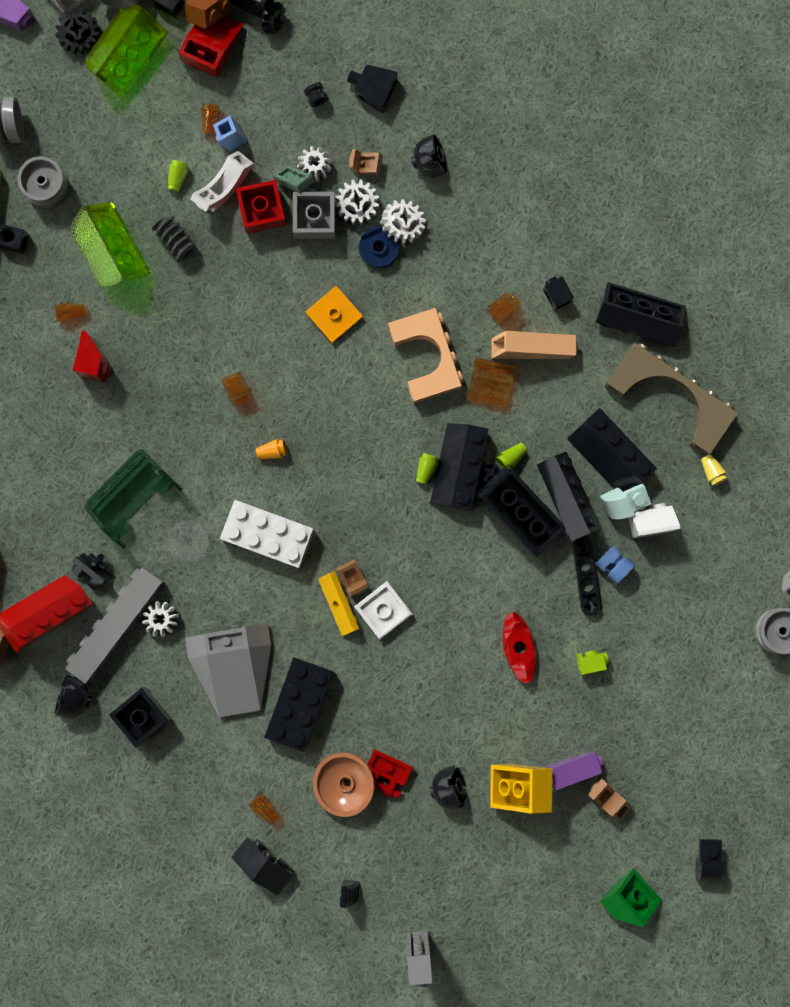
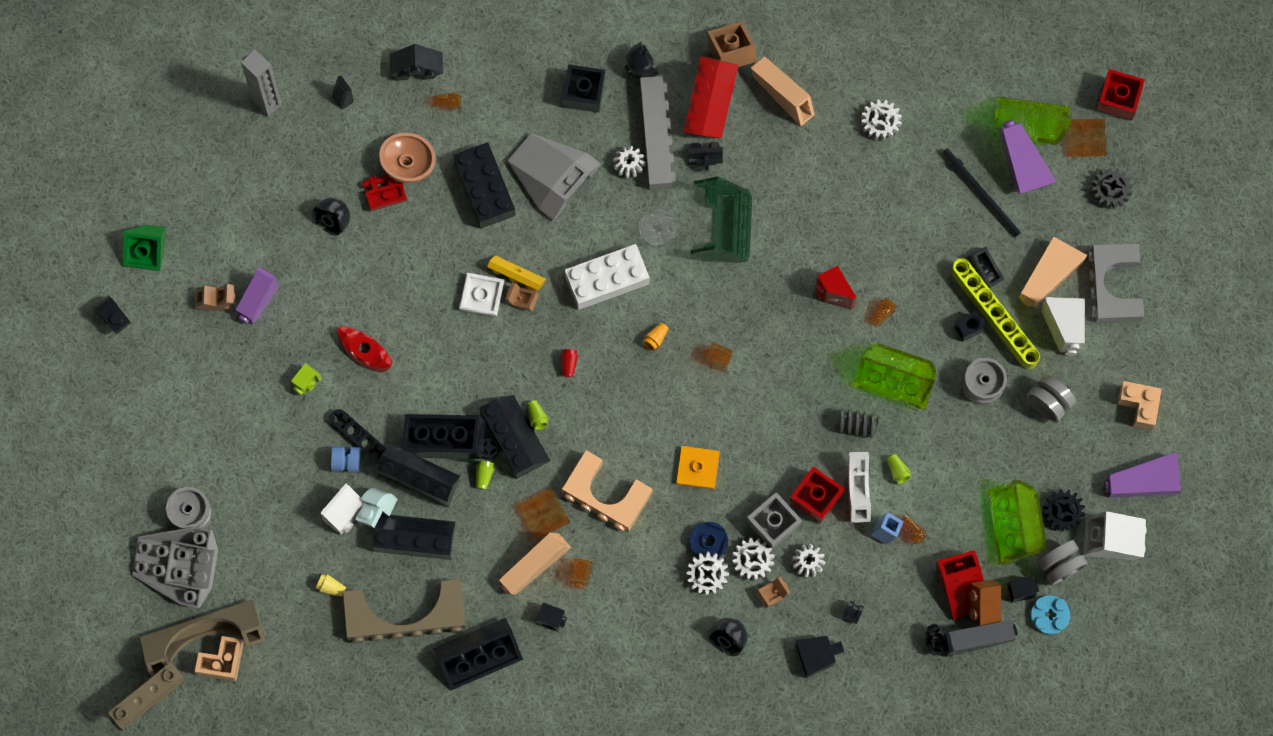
camera: 135 degrees right, 10 degrees down
(293, 178) = (812, 534): sand green plate -> none
(361, 490) = (568, 362): none -> red cone
(521, 788) = (283, 251): yellow brick -> none

